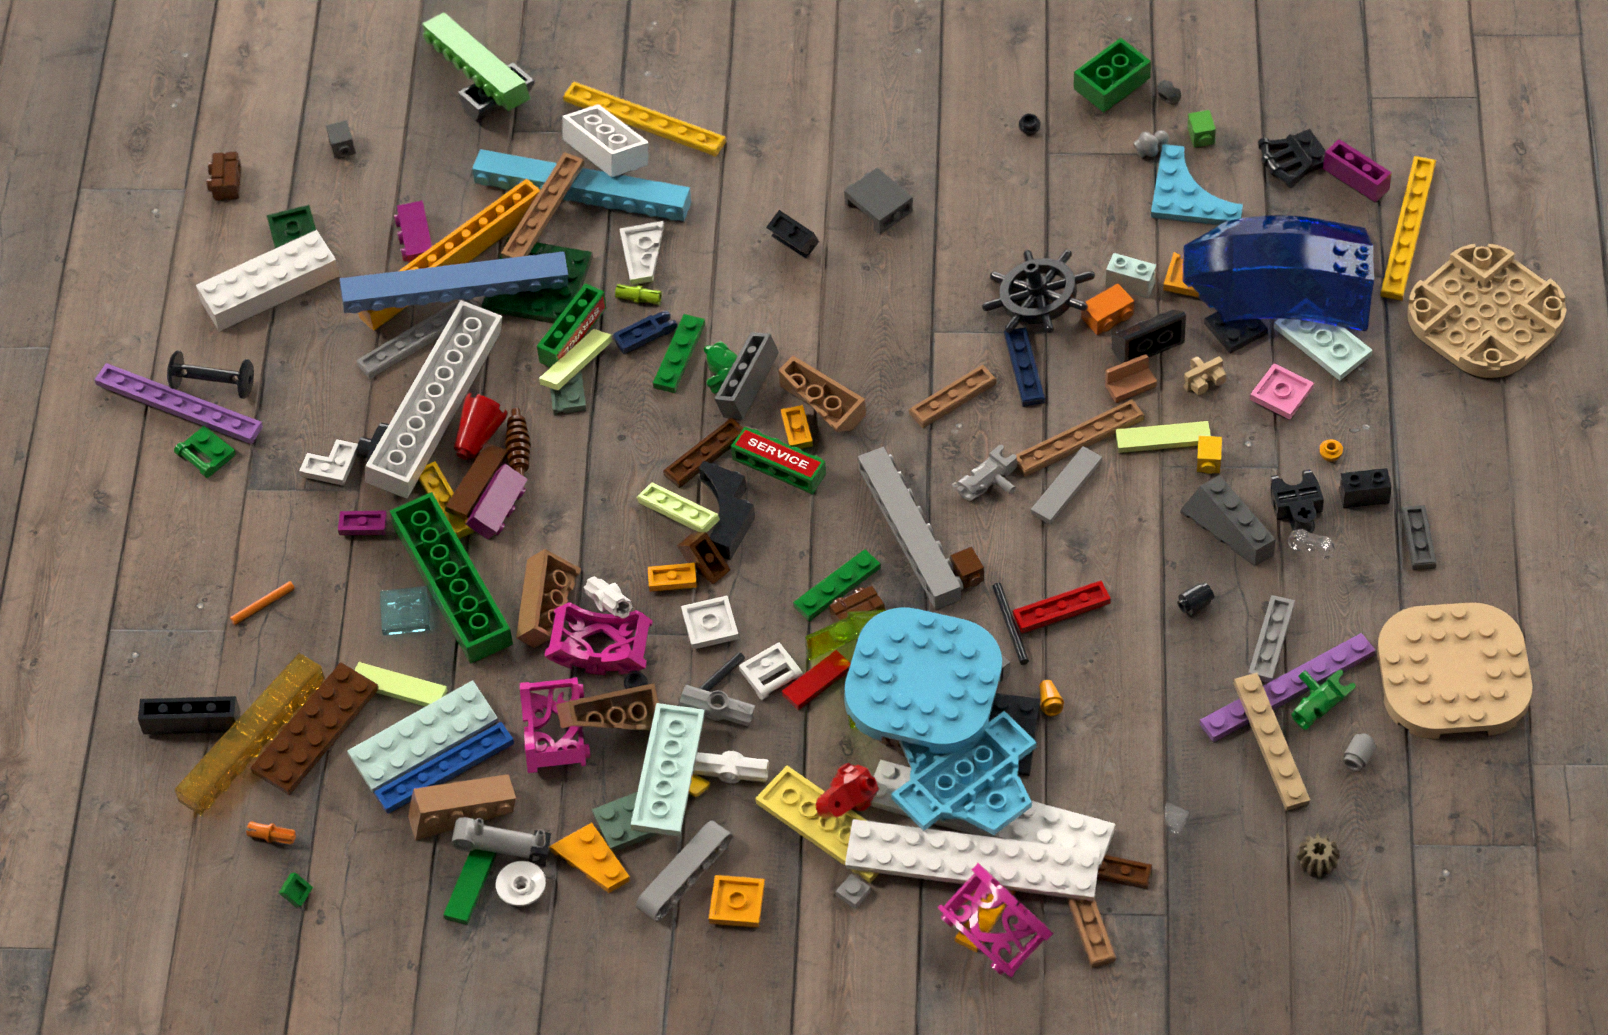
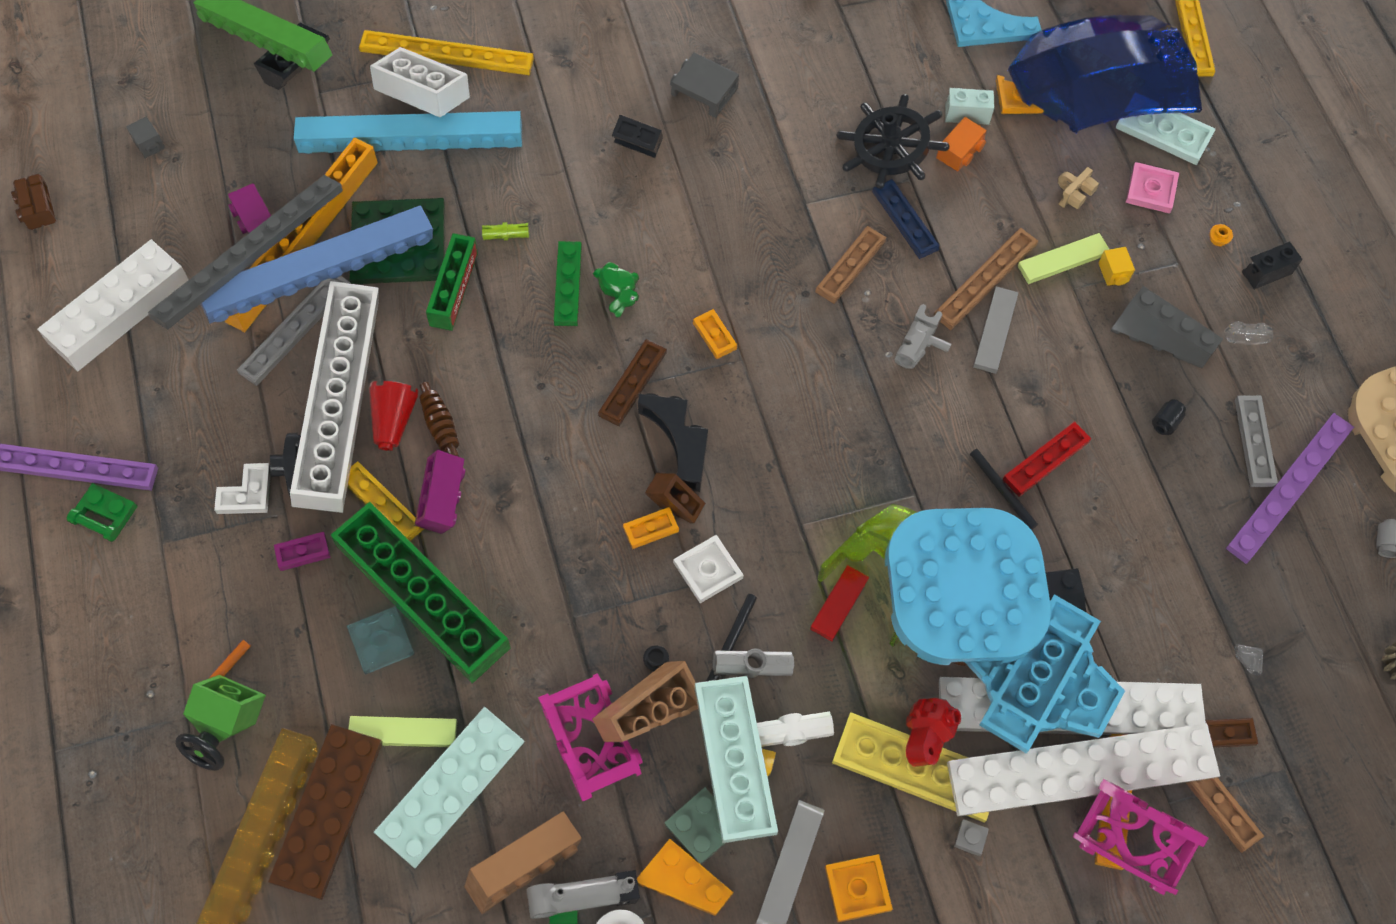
camera: 25 degrees left, 10 degrees up
(176, 372) = (43, 430): black hose -> none
(188, 714) = (177, 839): black brick -> none
(251, 630) = (217, 711): none -> bright green piece
(290, 224) = (121, 239): dark green plate -> none
(395, 255) = (244, 252): none -> dark grey plate
(445, 766) = (485, 819): blue plate -> none
(476, 481) = (409, 473): reddish brown tile -> none
(543, 206) = (381, 164): medium nougat plate -> none
(544, 589) = (526, 588): medium nougat wedge -> none
(569, 397) = (469, 351): sand green plate -> none
(575, 359) = (468, 315): yellowish green tile -> none
(589, 623) = (636, 638): dark pink fence -> none
(608, 597) = (598, 572): white piece -> none
(641, 250) = (492, 185): white wing -> none
(644, 331) = (525, 269): dark blue hinge -> none
(678, 508) = (631, 451): yellowish green tile -> none
(746, 375) = (647, 292): dark grey brick -> none
(766, 665) = (782, 603): white plate -> none
(778, 460) = (711, 372): brick -> none
(833, 401) = (740, 296): medium nougat wedge -> none
(837, 585) = (818, 492): green plate -> none
(861, 600) = (855, 510): reddish brown brick -> none
(910, 528) = (868, 413): light grey brick -> none
(967, 567) = (941, 442): reddish brown brick -> none
(1051, 700) = (1078, 559): light orange cone -> none
(1129, 378) = (1010, 209): nougat panel -> none
(1150, 336) = (1013, 161): black slope -> none
(1236, 332) = (1084, 142): black plate -> none
(1271, 741) = (1308, 551): tan plate -> none
(1298, 501) = (1216, 293): black piece -> none
(1321, 698) = (1332, 491): green piece -> none
(1418, 537) = (1336, 301): dark grey tile -> none
(1486, 311) = (1295, 70): tan plate -> none

